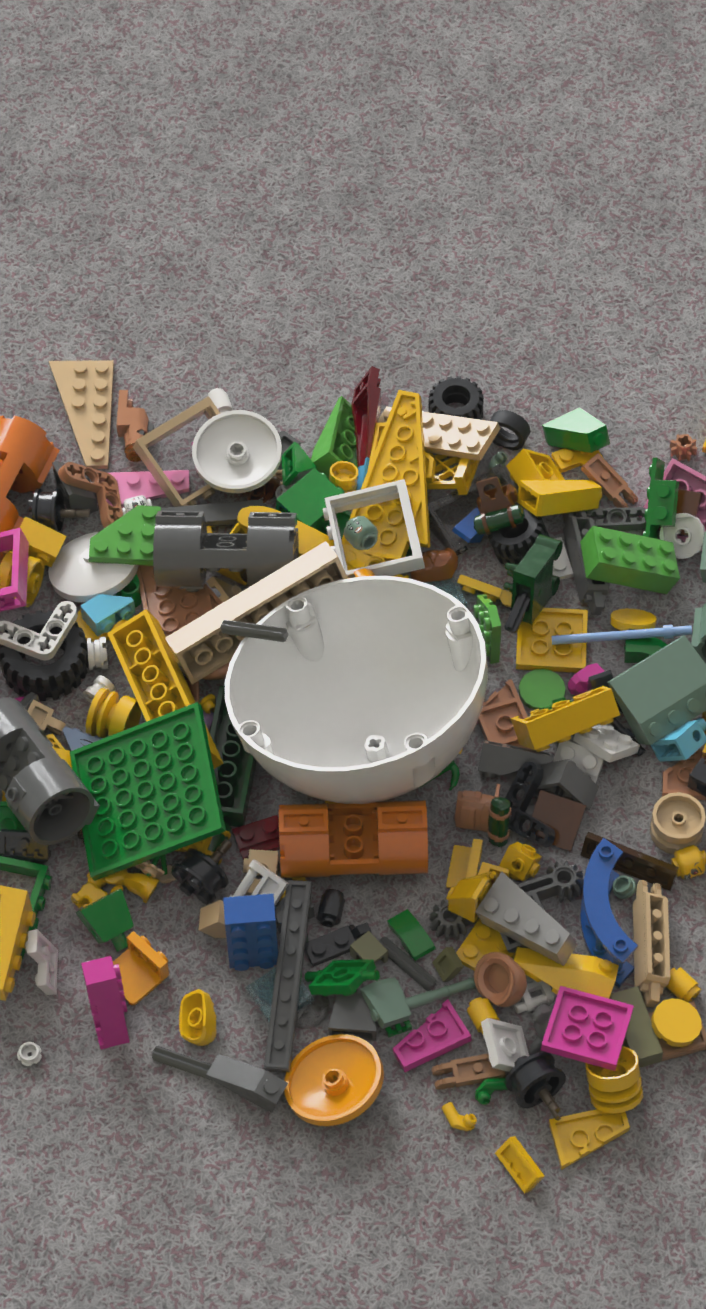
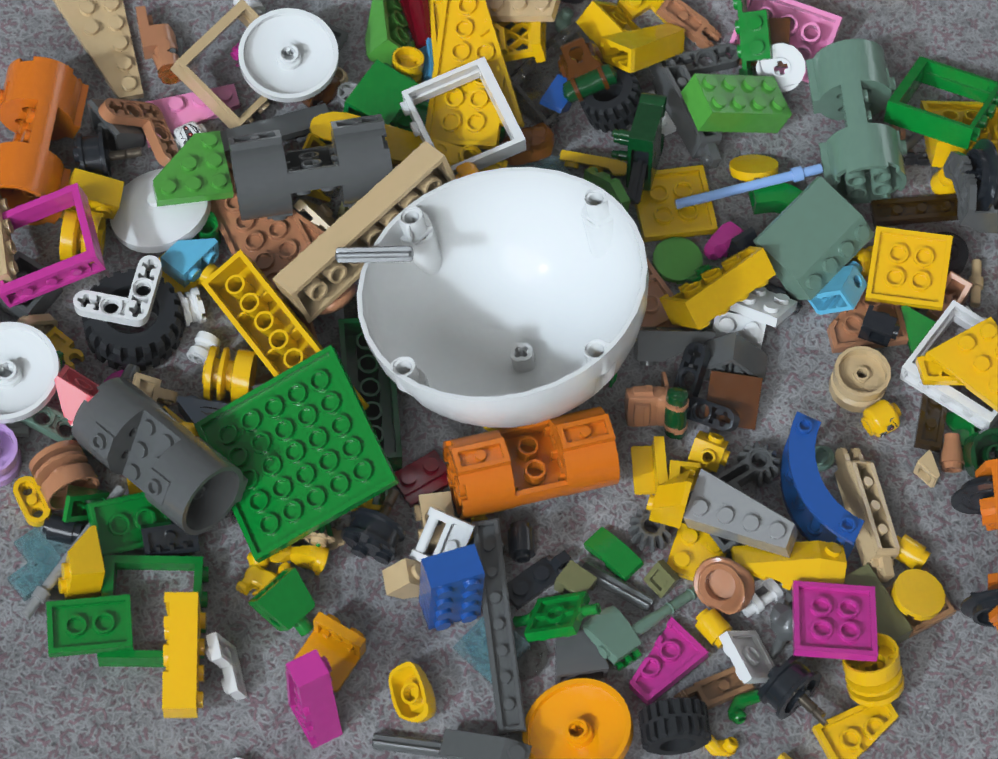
camera: 20 degrees left, 5 degrees up
(208, 703) = (329, 339): yellow arm -> none
(295, 464) = (352, 59): green slope -> none
(361, 533) = (453, 124): sand green head -> none
(419, 1092) = (674, 726): none -> black tyre
(635, 863) = (831, 431): dark brown plate -> none

